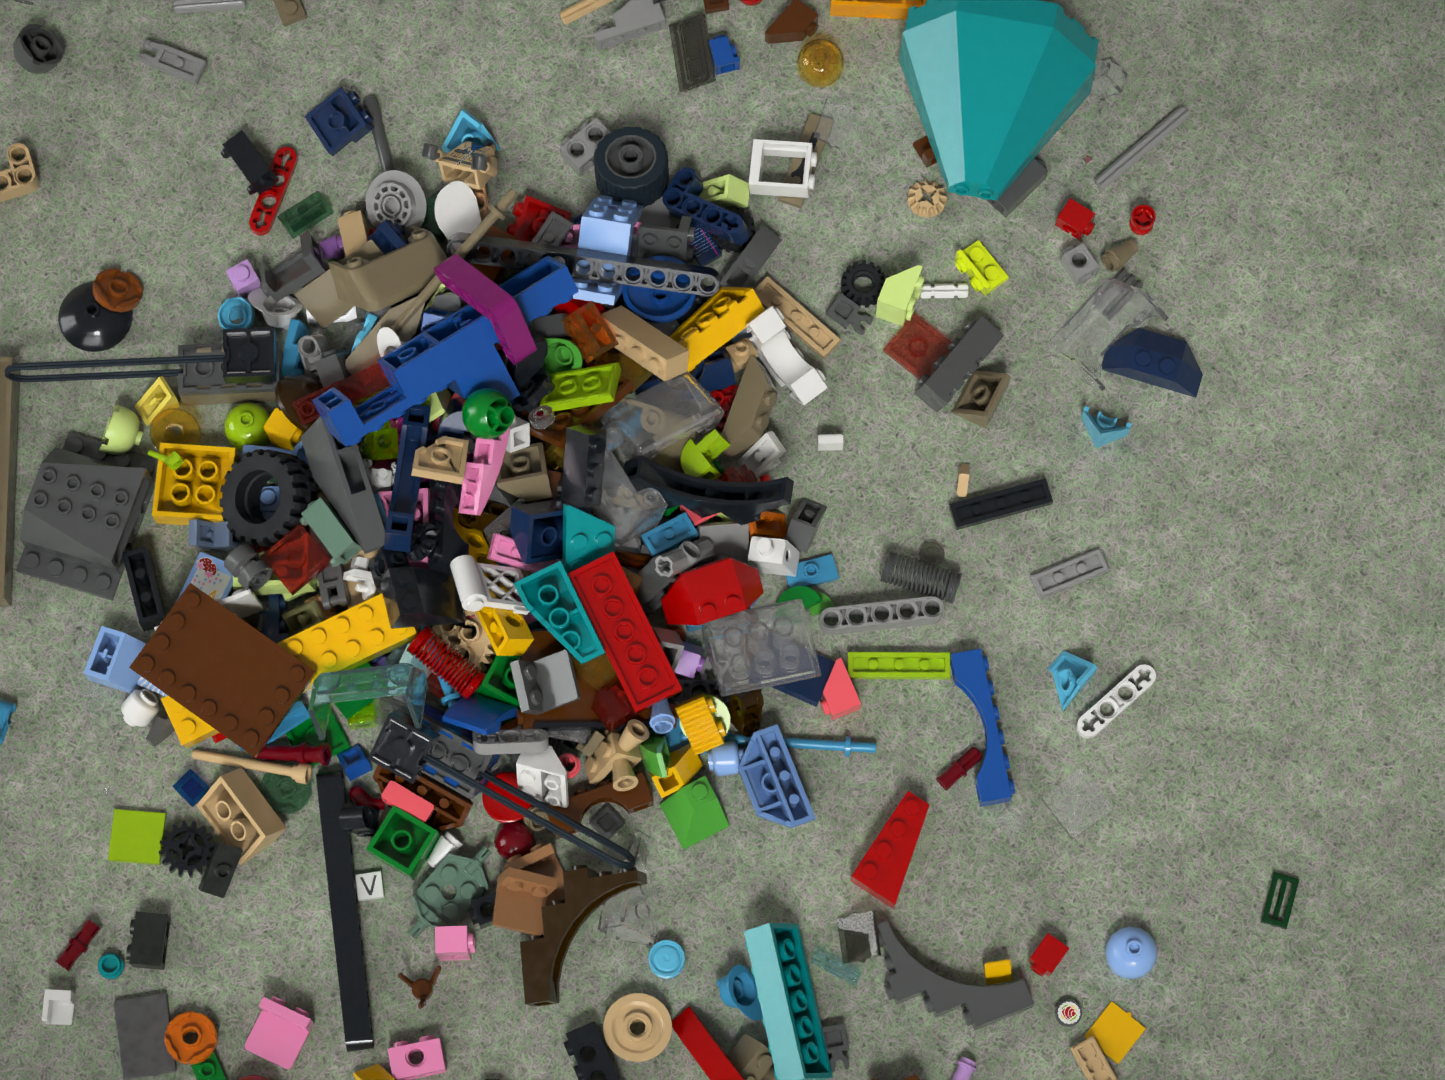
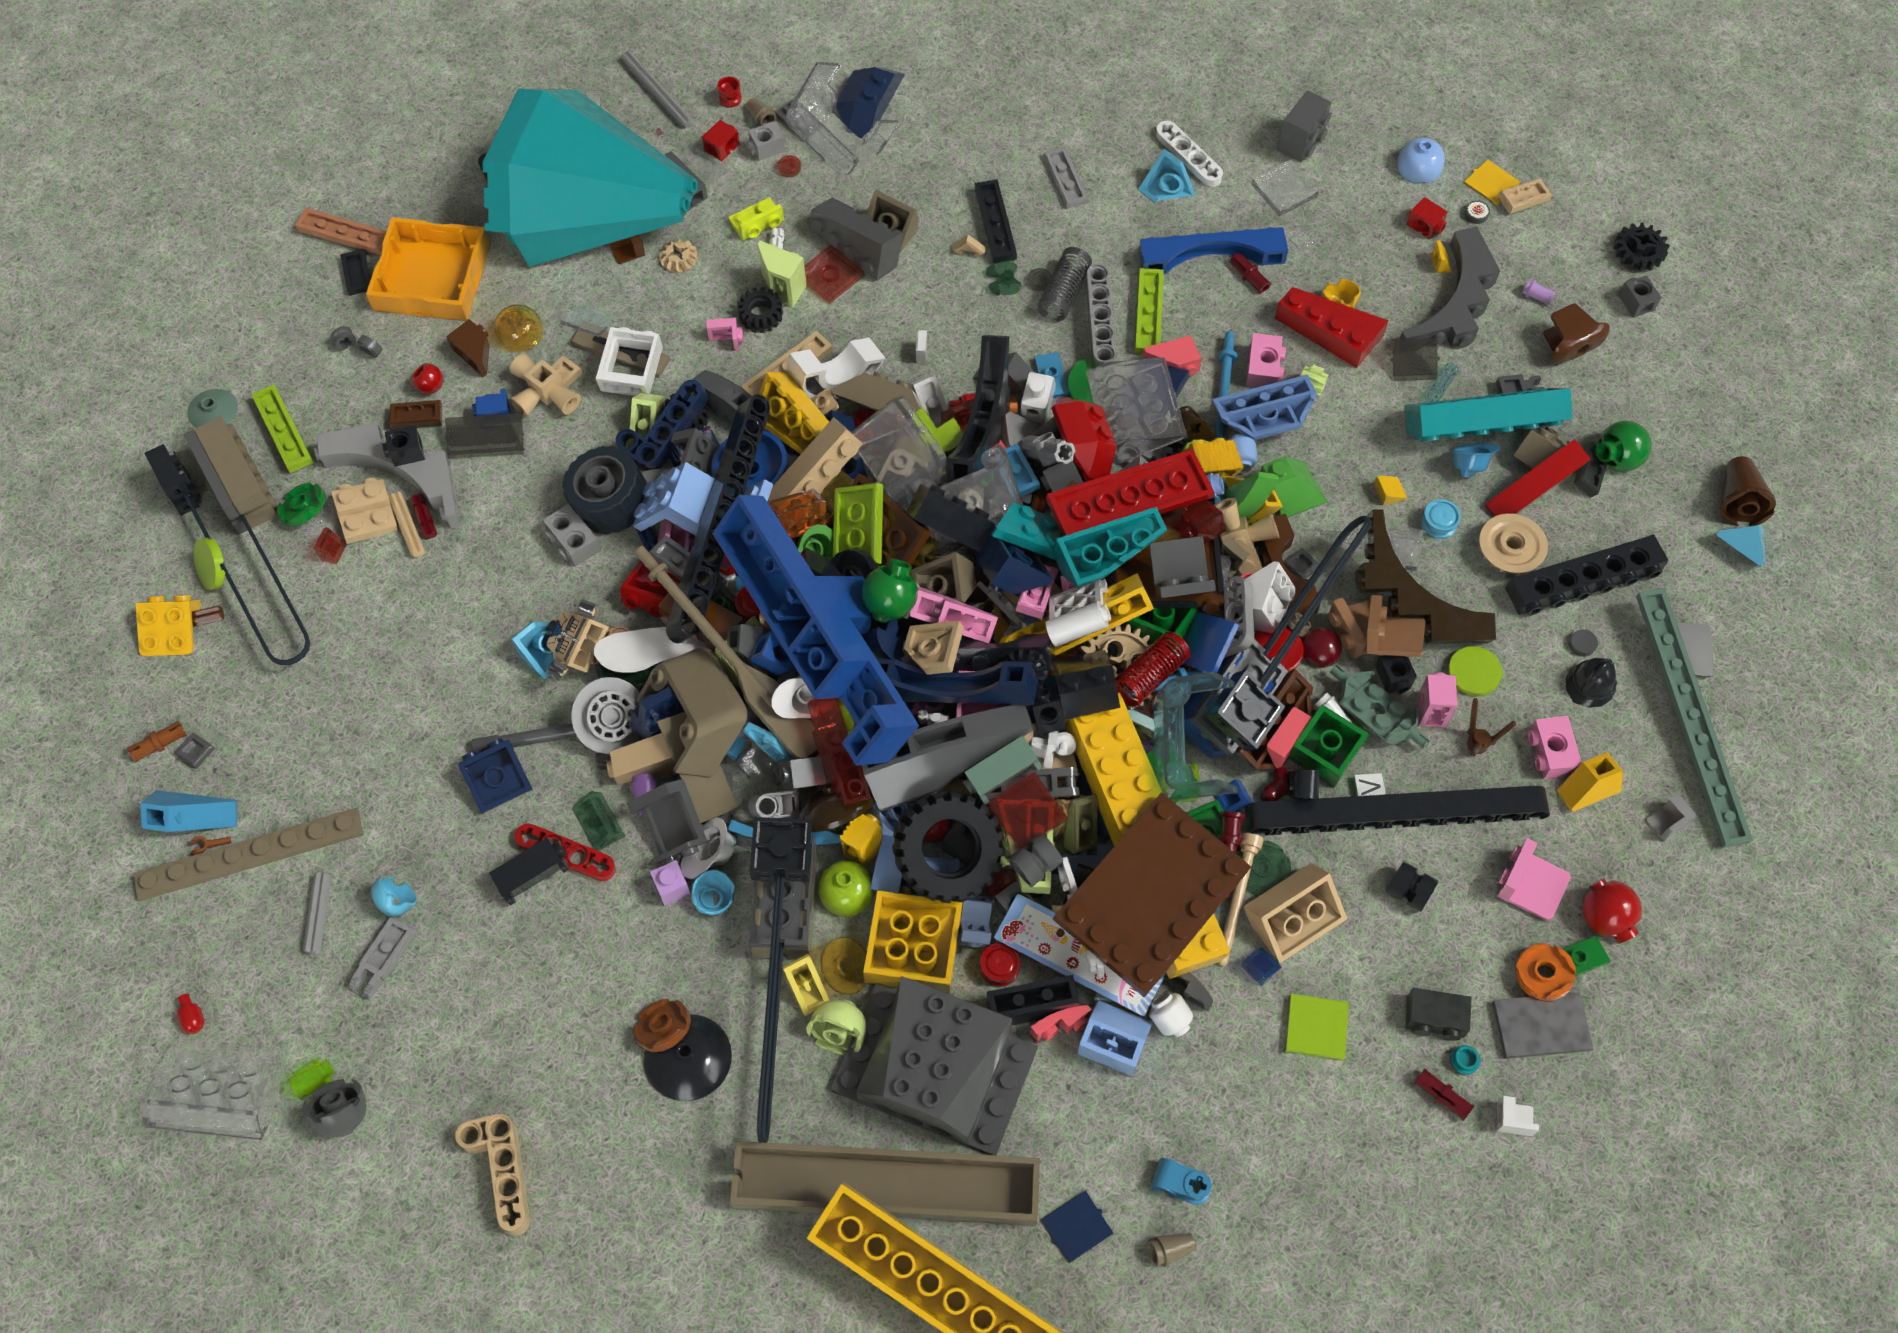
camera: 85 degrees left, 10 degrees down
(66, 27) = (311, 1077): none -> clear neon green brick
(131, 620) = (1069, 1019): none -> coral slope
(173, 461) = (890, 956): lime hand -> none
(176, 845) = (1325, 979): black gear -> none
(180, 560) = (999, 964): none -> red wheel
(220, 52) = (385, 891): none -> medium azure hair
(220, 869) = (1357, 933): pearl dark grey plate -> none
(268, 919) = (1412, 886): none -> black wheel
(490, 302) = (762, 572): magenta beam -> none
(498, 989) = (1475, 671): none -> lime tile
(541, 417) = (888, 552): clear tile -> none
(601, 16) = (423, 516): none -> dark red axle
(700, 911) = (1389, 489): none -> yellow slope
(753, 97) = (545, 384): none -> tan brick
(822, 831) = (1316, 377): none -> yellowish green gear
(836, 250) = (724, 330): none -> bright pink bracket
(845, 312) = (789, 327): dark grey plate -> none
(855, 775) = (1265, 349): none -> bright pink brick
(923, 854) = (1344, 289): none -> yellow hair
(937, 519) = (1007, 284): none -> clear green piece
(1054, 292) = (789, 166): none -> clear red tile
(1103, 429) = (931, 139): medium azure slope -> none
(1153, 819) = (1304, 126): none -> dark grey brick
(1274, 921) = (1370, 60): dark green tile -> none

